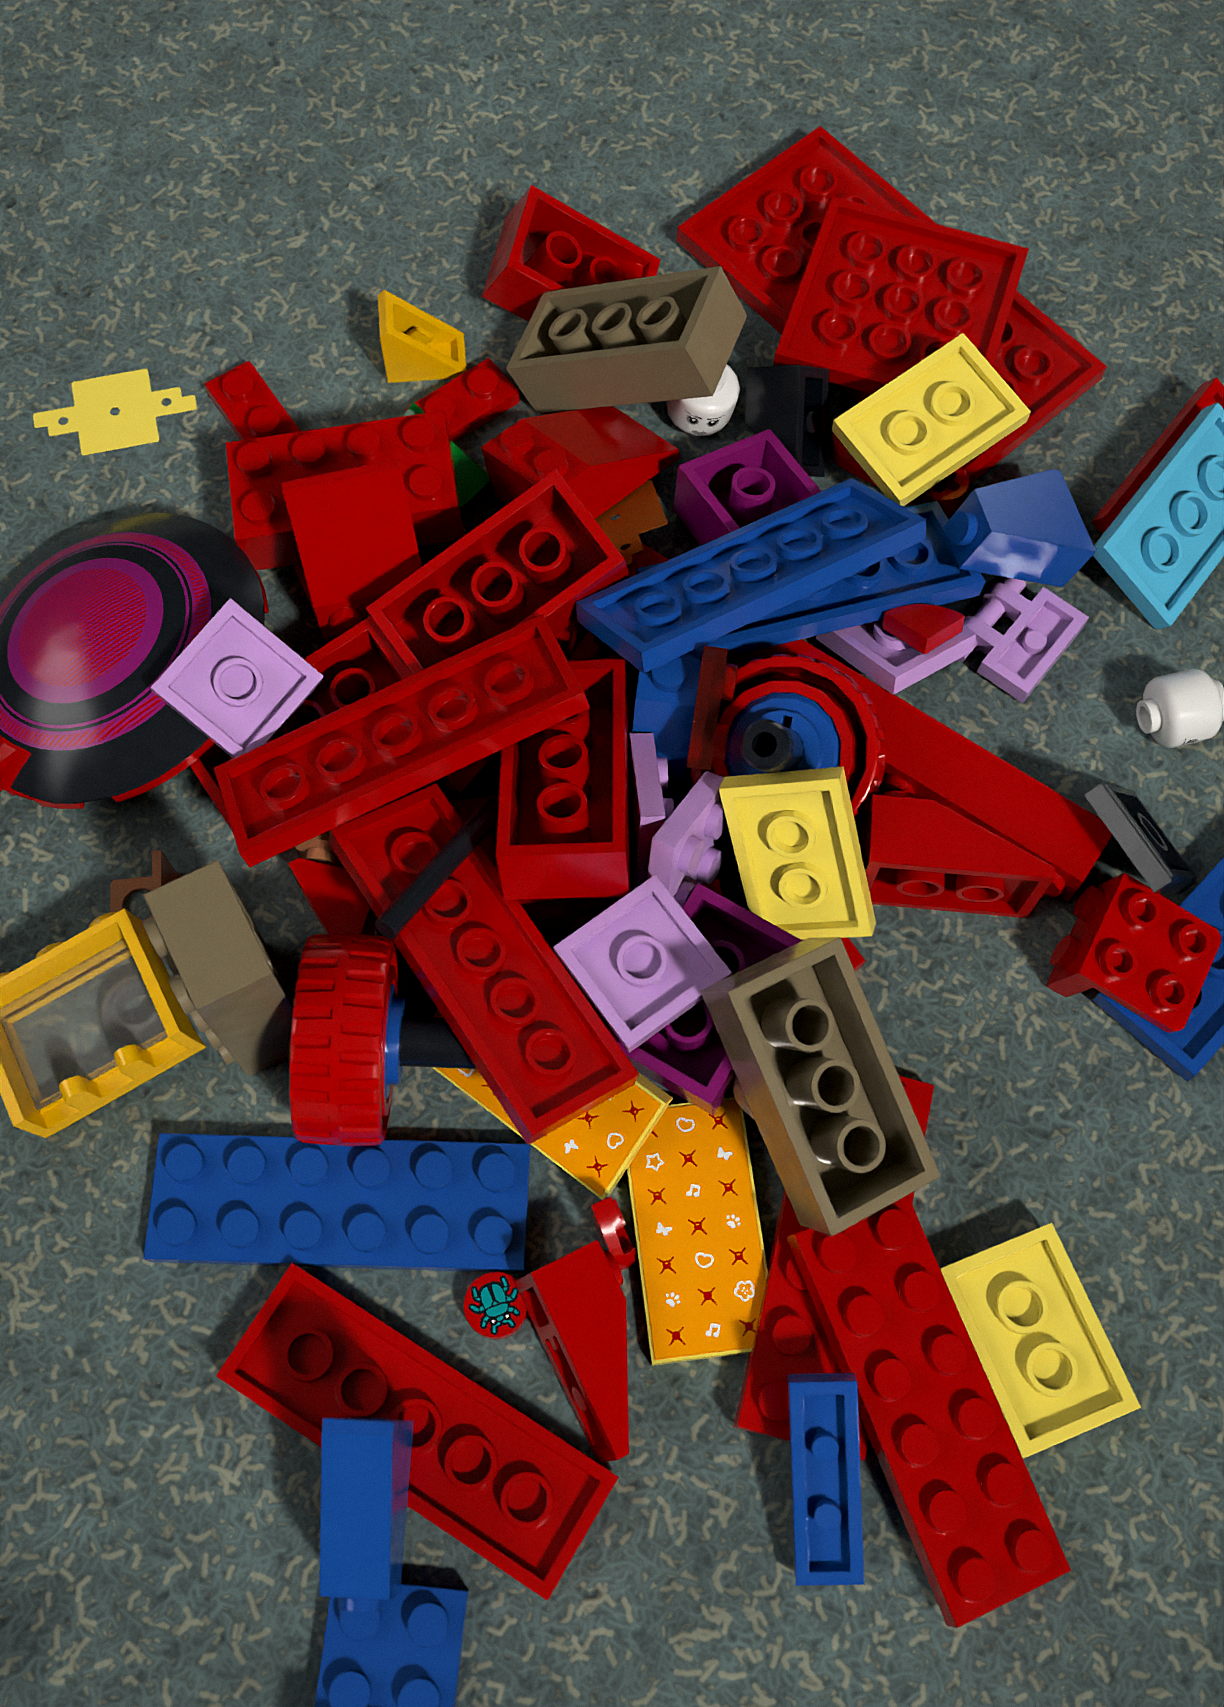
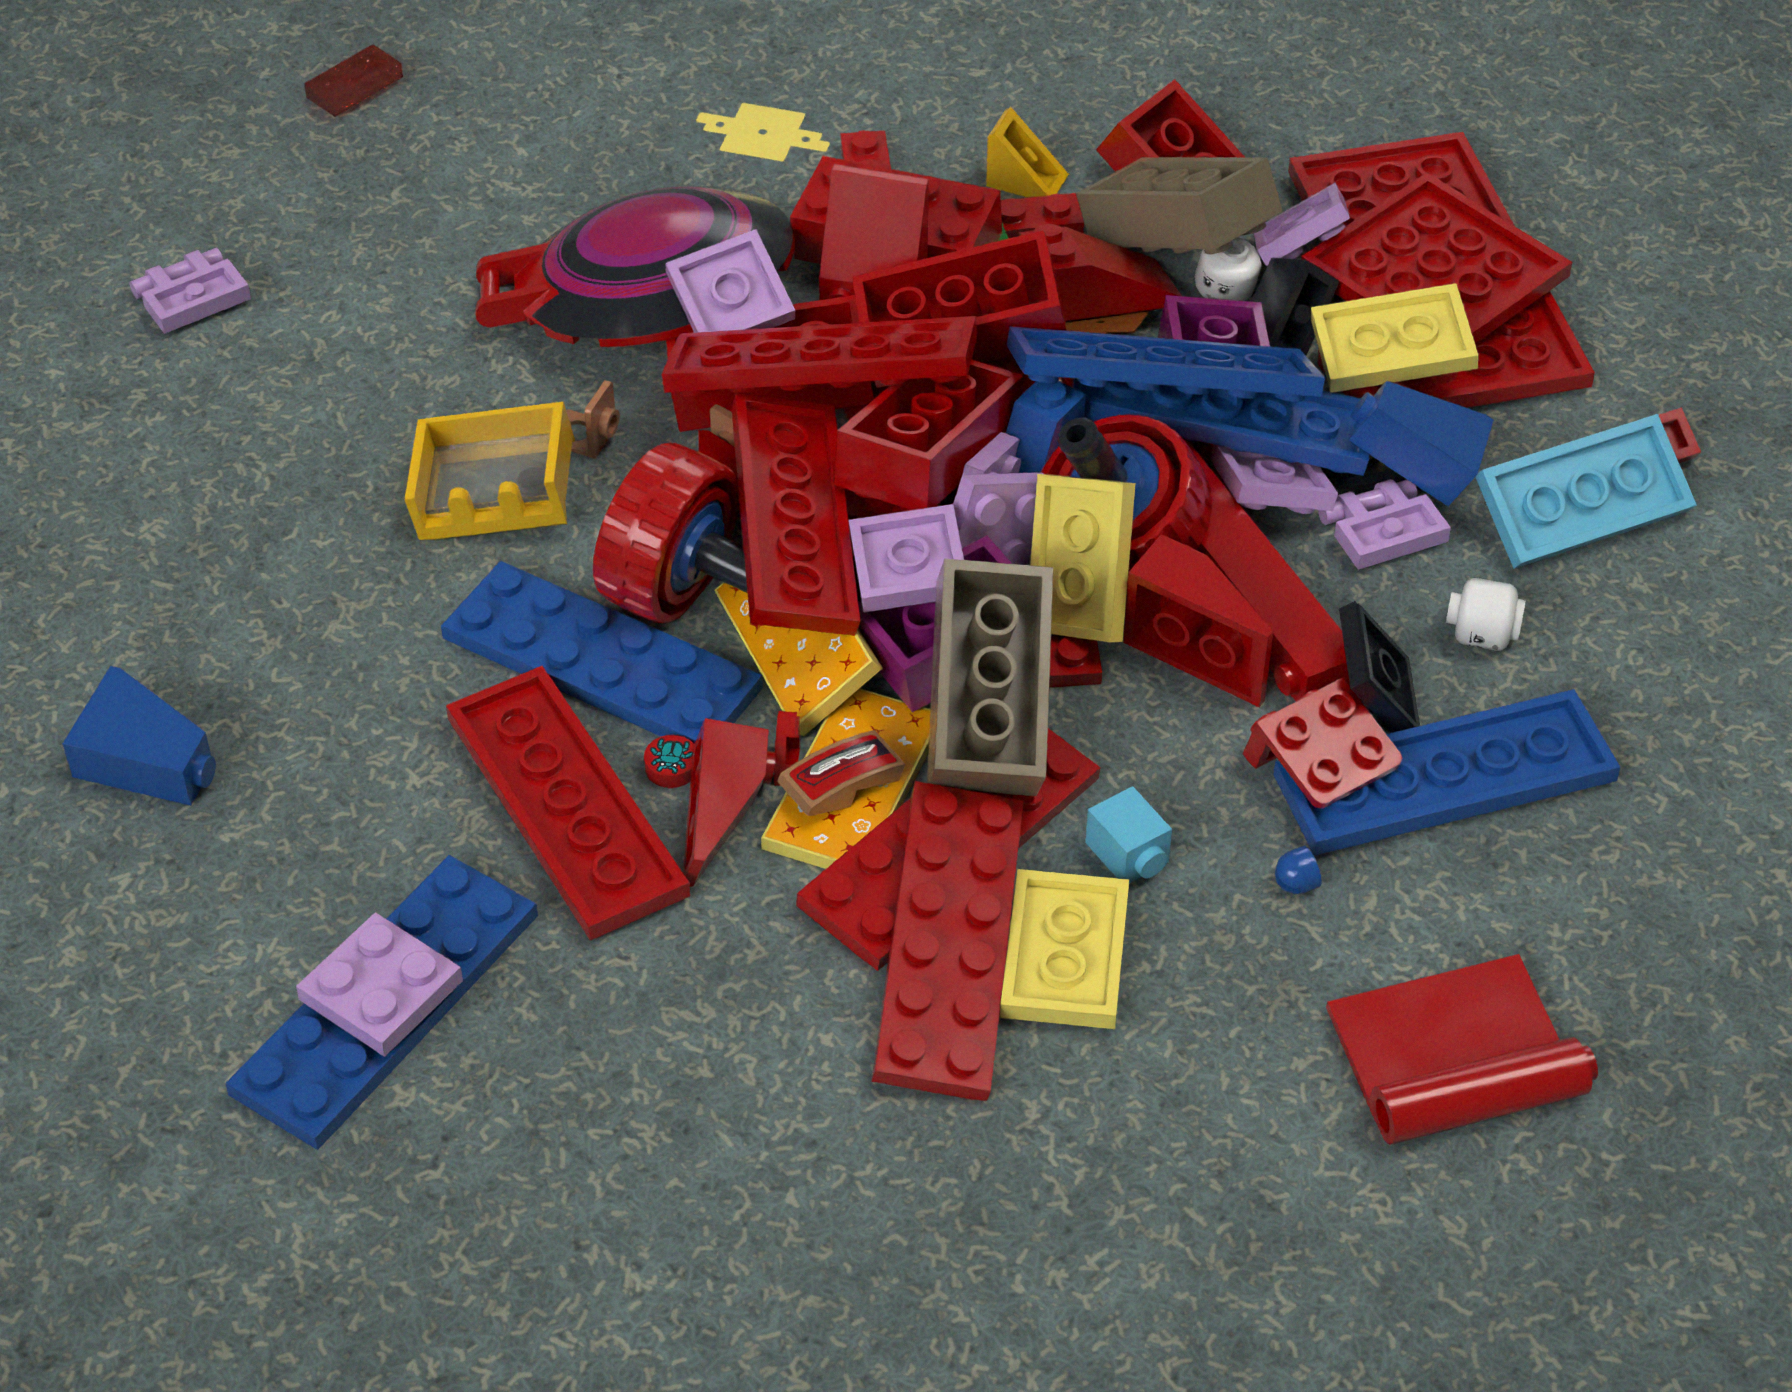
camera: 30 degrees right, 20 degrees down
(221, 968) = (606, 430): dark tan brick -> none
(363, 1509) = (501, 789): blue slope -> none
(438, 869) = (782, 446): black bar -> none
(695, 1246) = (835, 773): none -> slope
(715, 683) = (1081, 400): clear red plate -> none
(771, 301) = (1313, 218): none -> lavender plate
(825, 1479) = (838, 941): blue plate -> none
(923, 625) = (1294, 467): red tile -> none
(1018, 1164) = (1128, 836): none -> medium azure brick
(1191, 1115) = (1298, 871): none -> blue hinge

